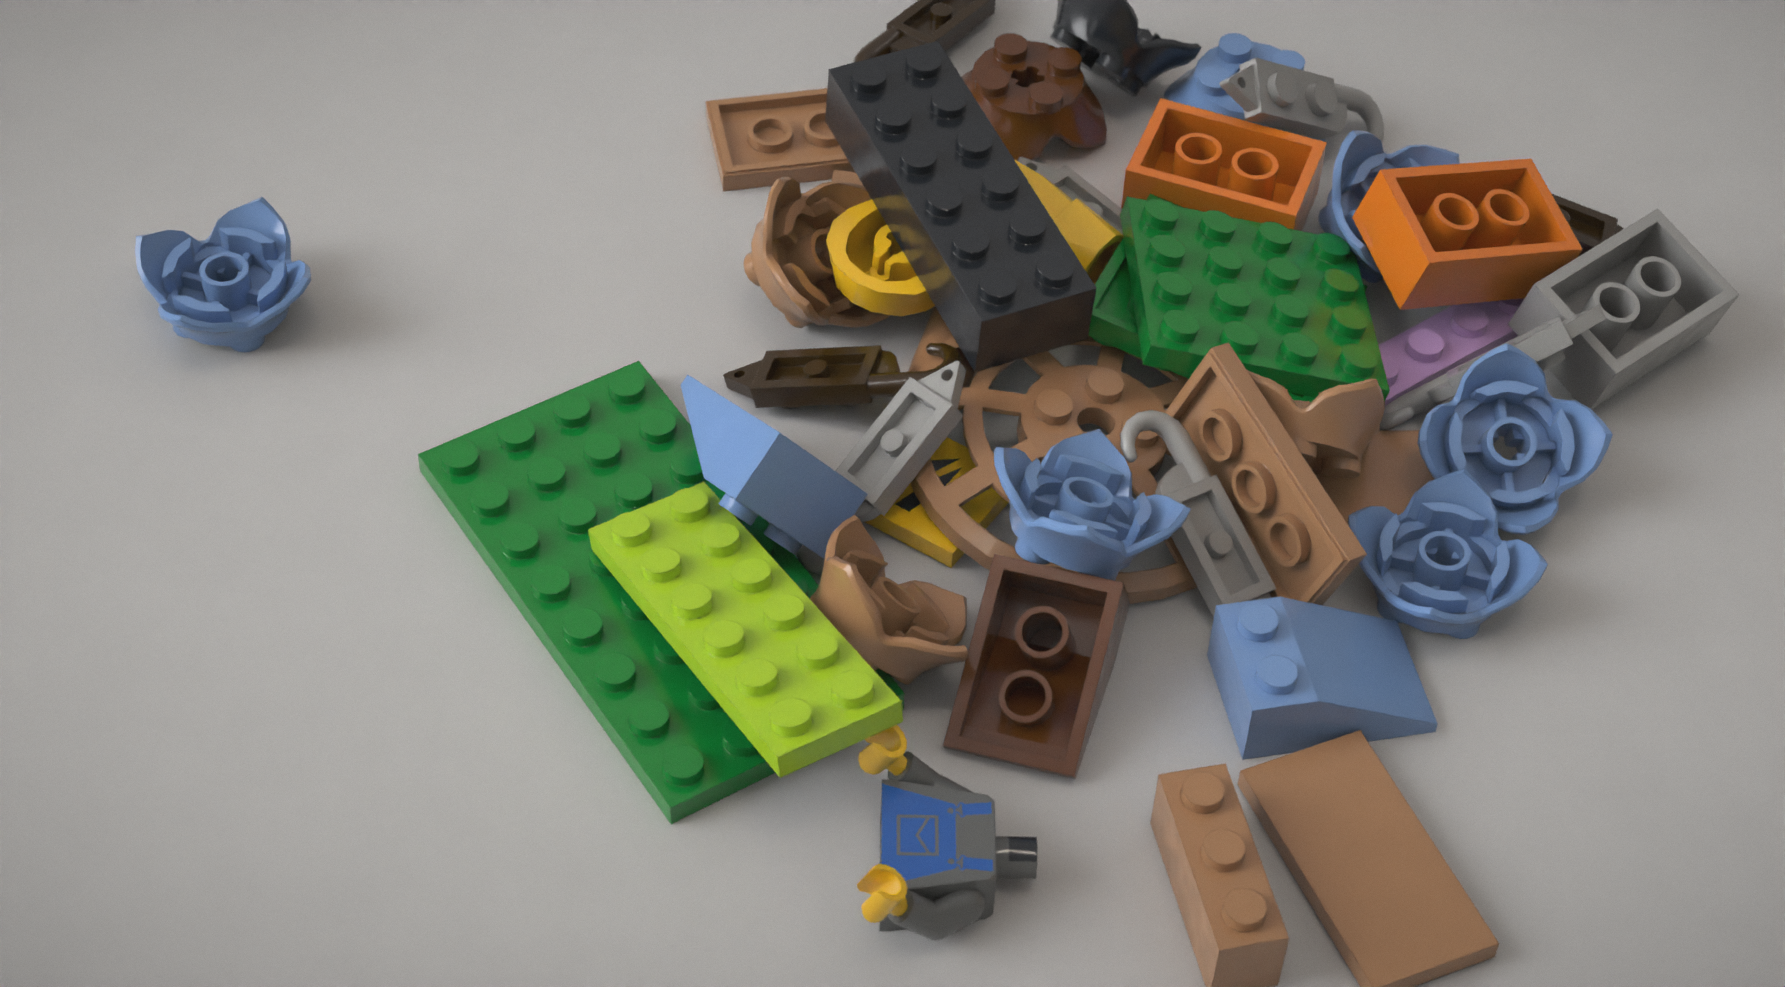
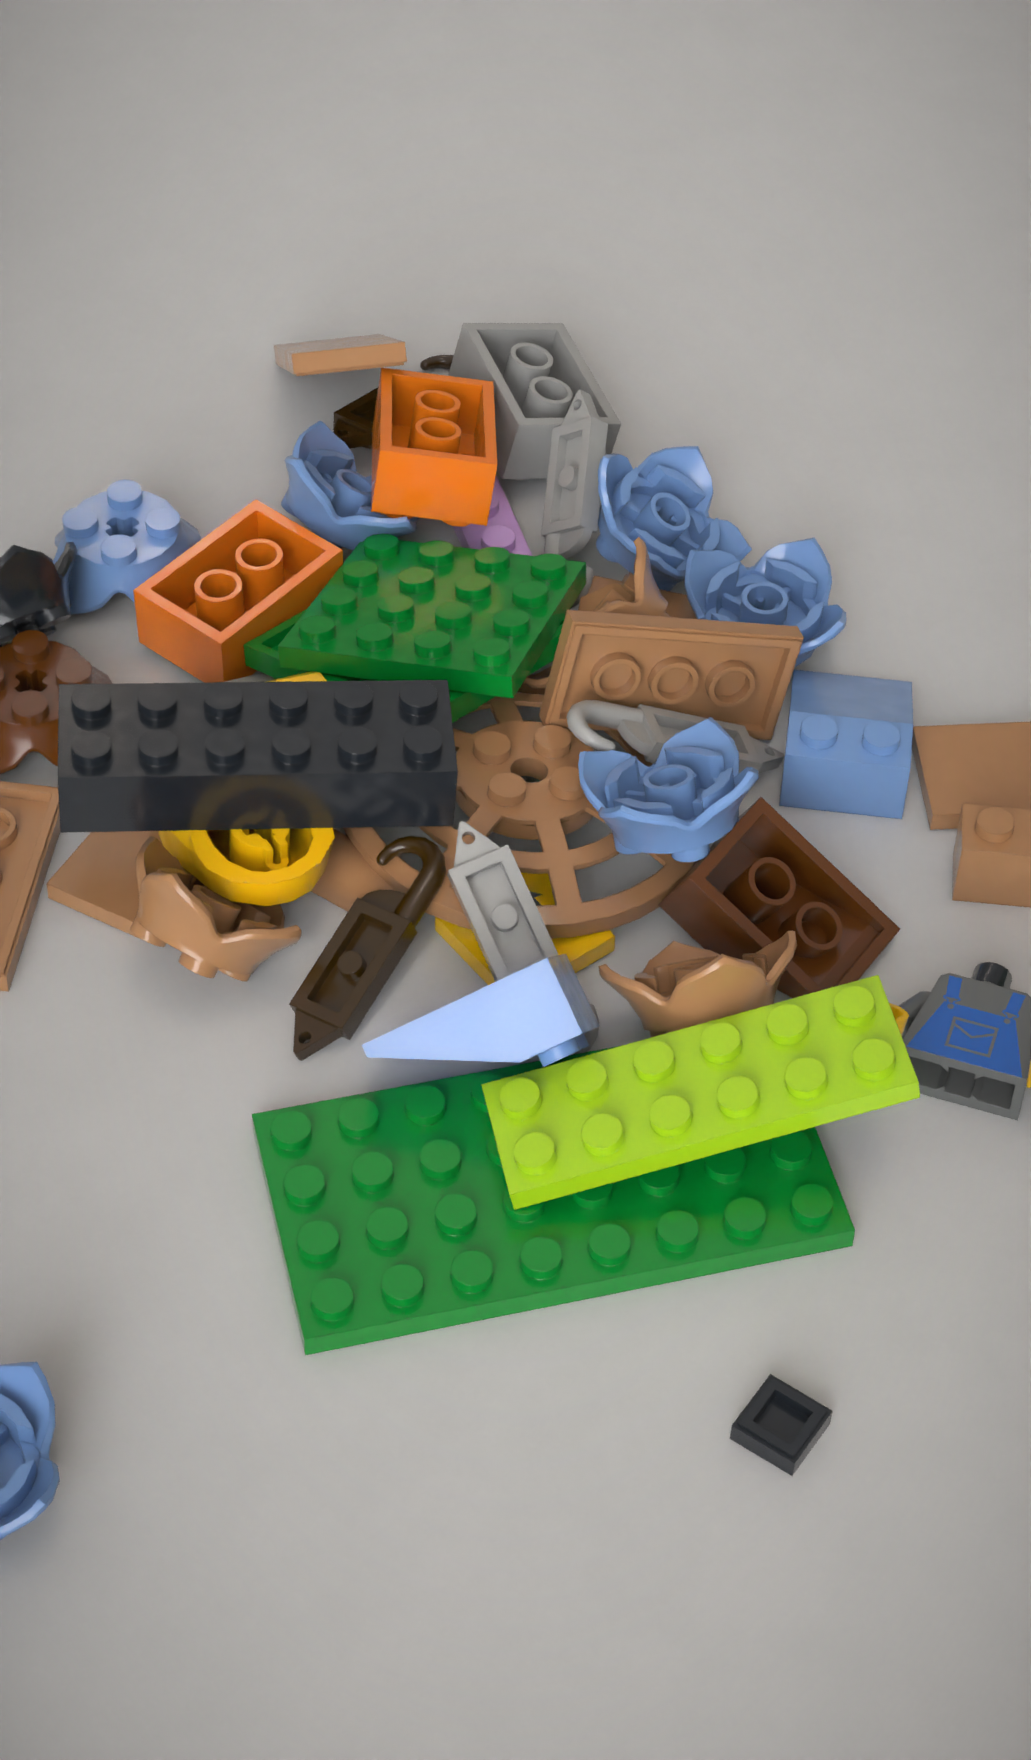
camera: 70 degrees left, 0 degrees up
(442, 804) = (781, 1424): none -> black tile
(1299, 100) = (186, 500): light grey plate -> none
(1569, 146) = (340, 354): none -> medium nougat tile

